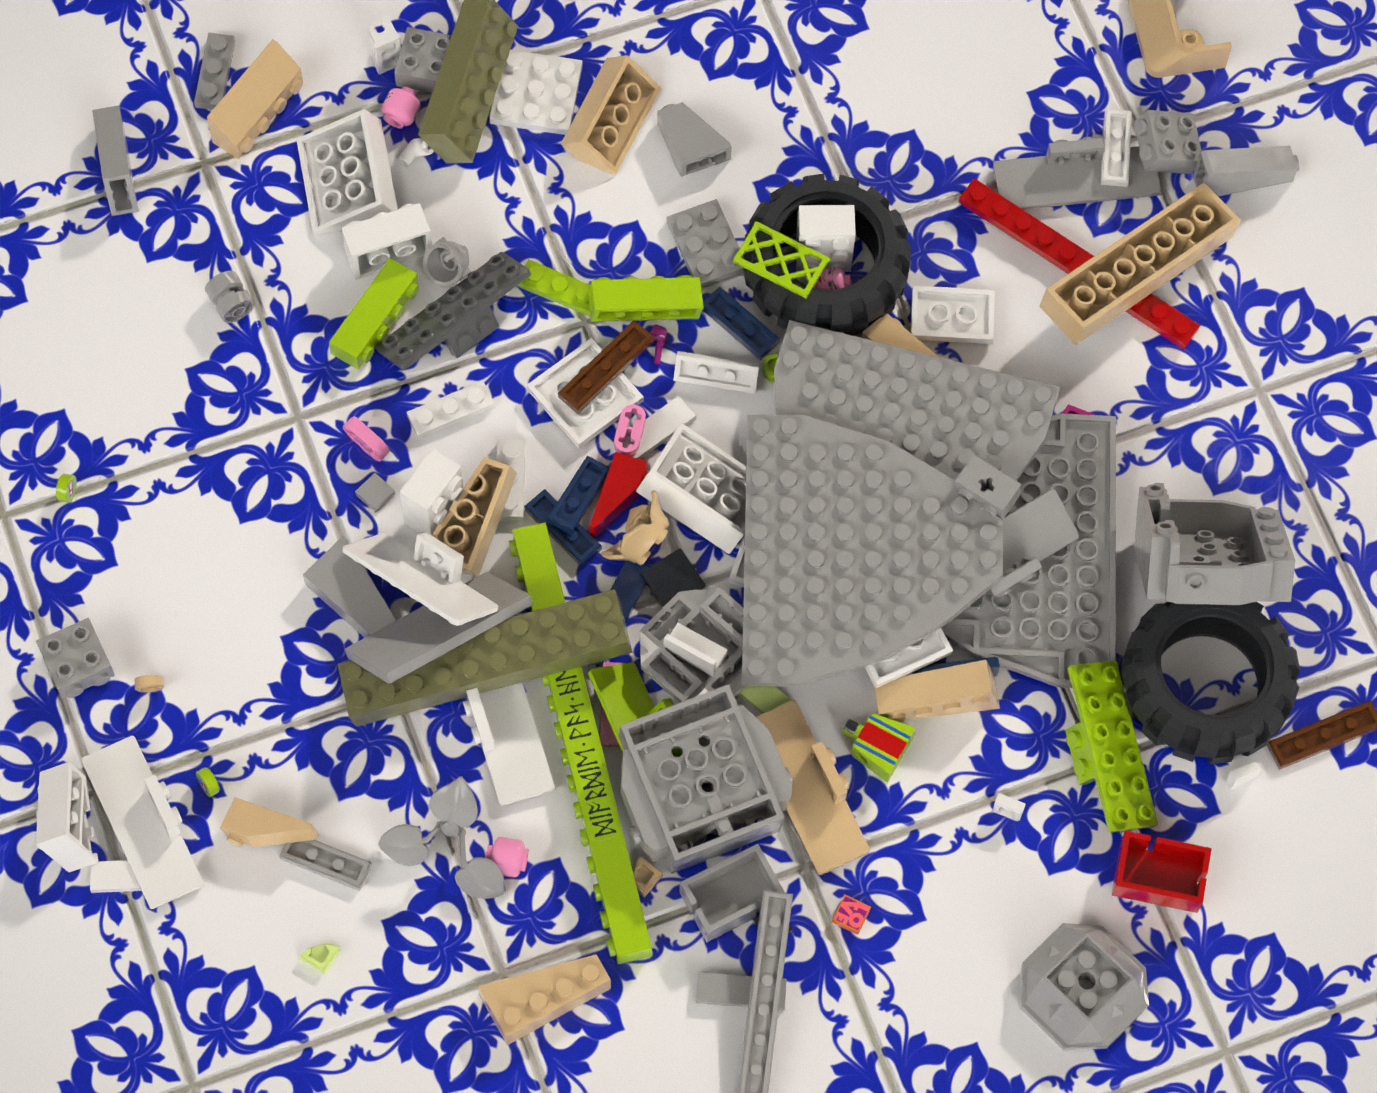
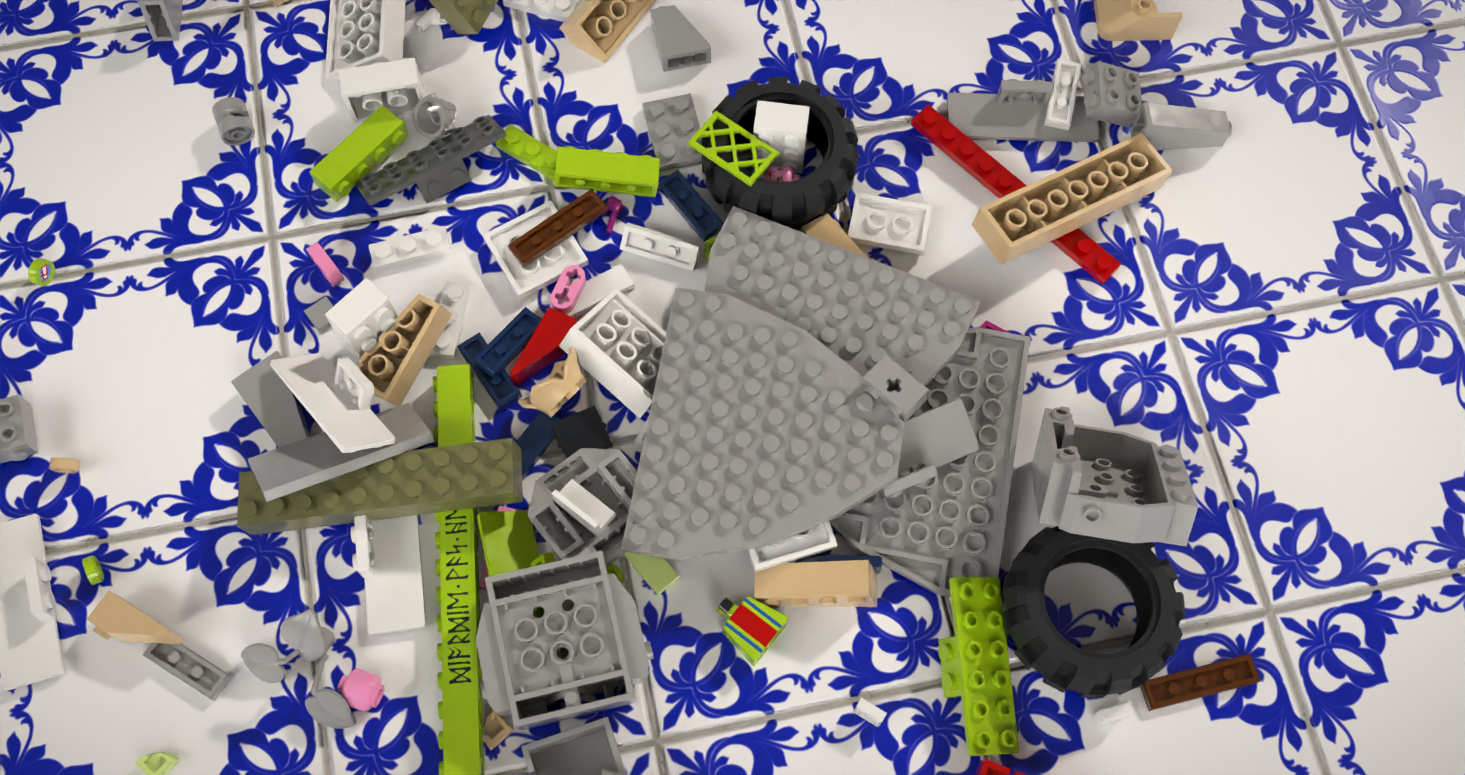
camera: 10 degrees right, 0 degrees up
(818, 792) = (678, 669): tan bracket -> none

